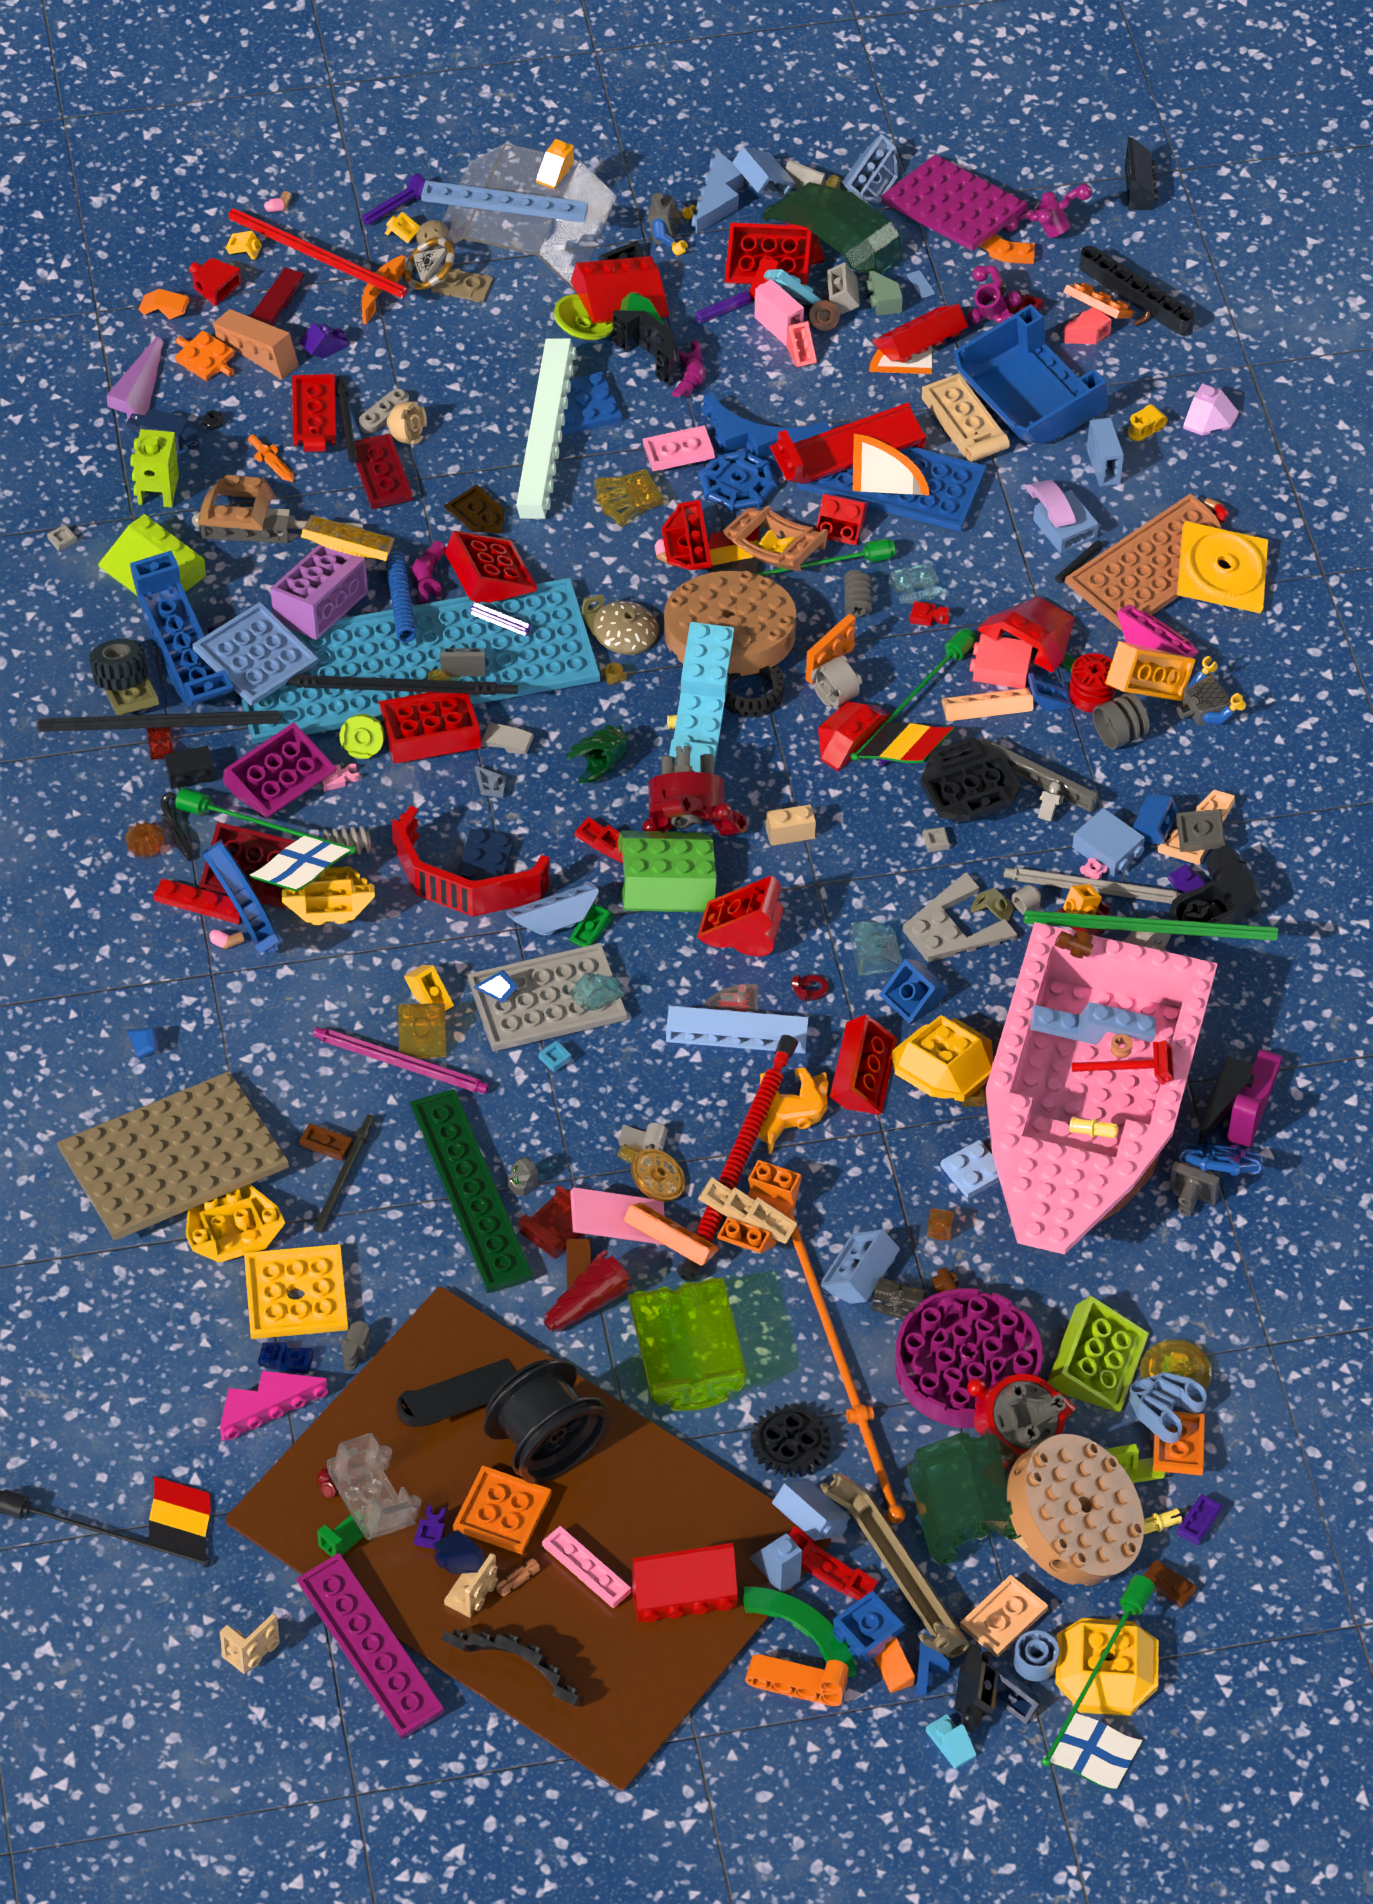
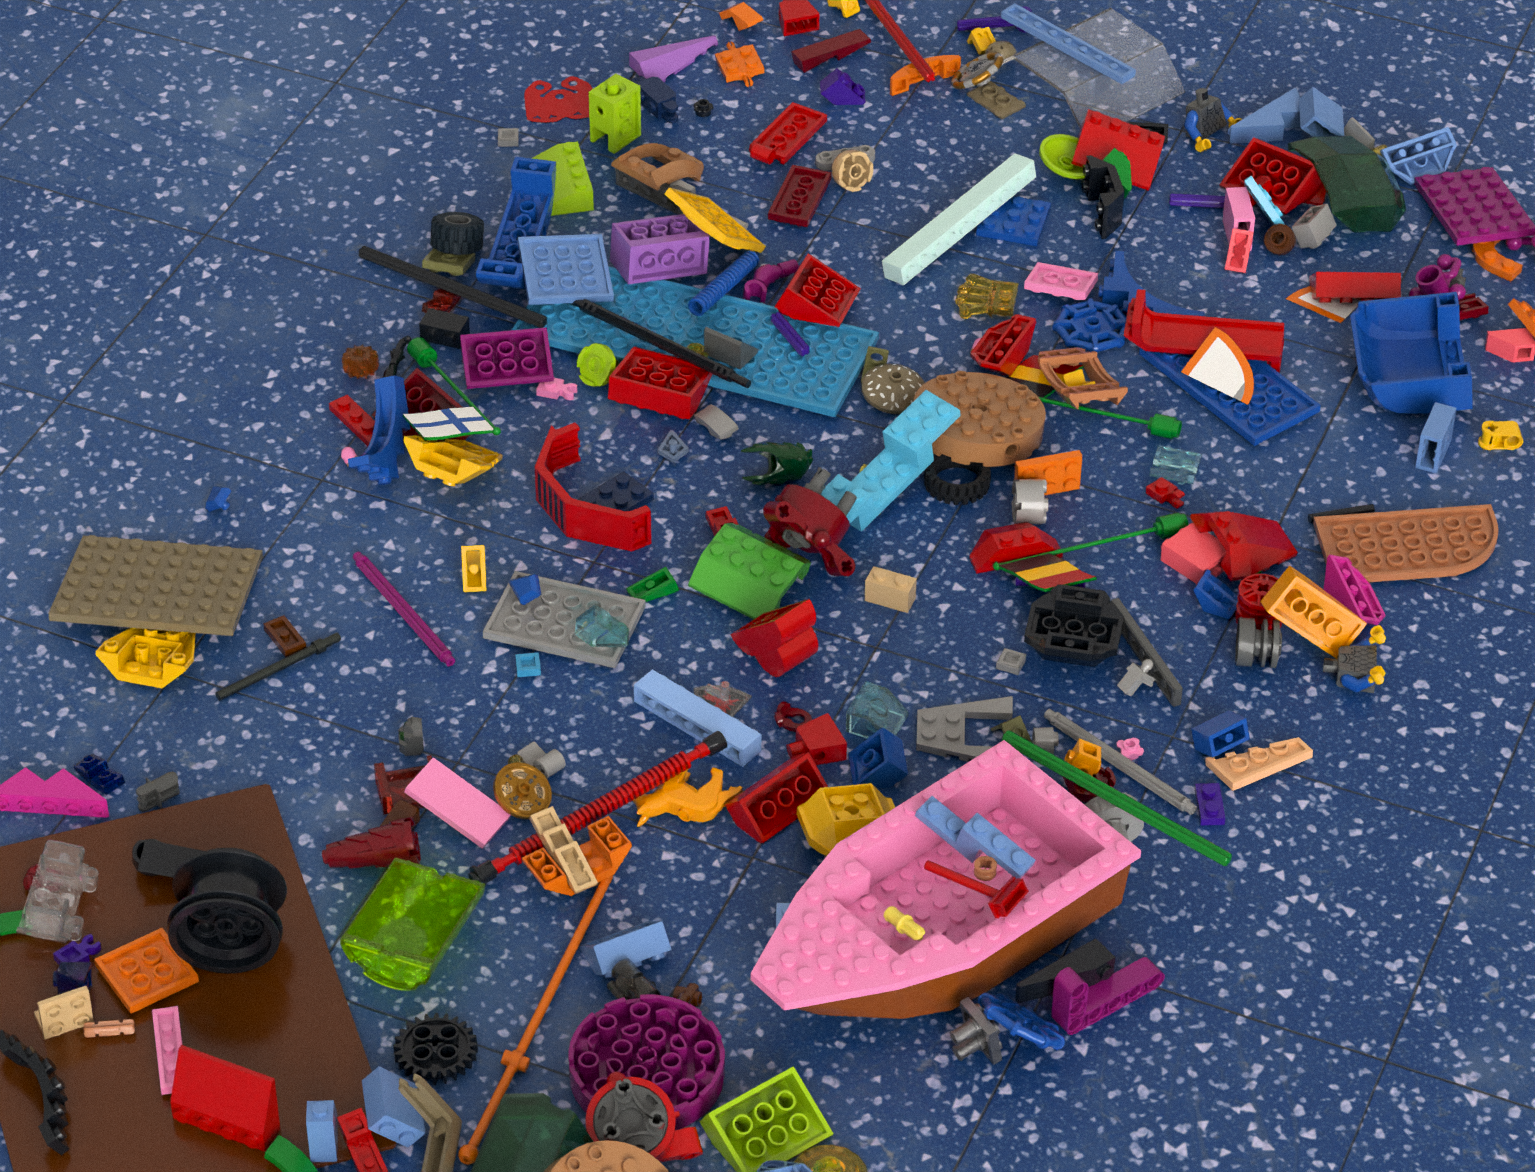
camera: 35 degrees right, 10 degrees down
(82, 480) = (550, 105): none -> red piece
(258, 342) = (787, 69): nougat wedge -> none
(270, 458) = (723, 154): orange sword -> none
(310, 1269) = (150, 709): yellow piece -> none
(342, 394) = (822, 132): black bar -> none
(359, 840) = (514, 435): light grey piece -> none
(422, 1030) = (439, 593): clear yellow slope -> none
(471, 1191) = (362, 729): dark green plate -> none
(477, 511) = (852, 256): dark brown tile -> none
(556, 164) = (1135, 33): slope -> none
(556, 910) = (626, 558): medium blue wedge -> none
(613, 673) = (851, 416): clear yellow plate -> none
(670, 1233) = (485, 836): slope -> none
(694, 372) = (1128, 235): magenta piece -> none
(842, 518) = (1154, 389): red slope -> none
(852, 997) = (821, 740): none -> red torso
(857, 593) = (1113, 449): dark grey piece -> none
(884, 294) = (1349, 247): sand green slope -> none
(920, 284) = (1393, 255): medium blue sticker -> none
(940, 1224) = (726, 950): clear orange plate -> none
(964, 418) = (1333, 363): tan hinge -> none
(987, 704) = (1153, 582): light nougat slope -> none
(1054, 501) = (1350, 454): lavender slope -> none
(1071, 535) = (1354, 477): medium blue brick -> none
(1079, 944) = (1019, 771): reddish brown plate -> none
(1109, 841) = (1162, 732): medium blue brick -> none
(1200, 830) = (1253, 761): dark grey tile -> none
(1206, 581) = (1467, 593): yellow piece -> none
(1219, 508) = (1510, 529): red arm -> none
(1227, 899) = (1229, 824): black piece -> none

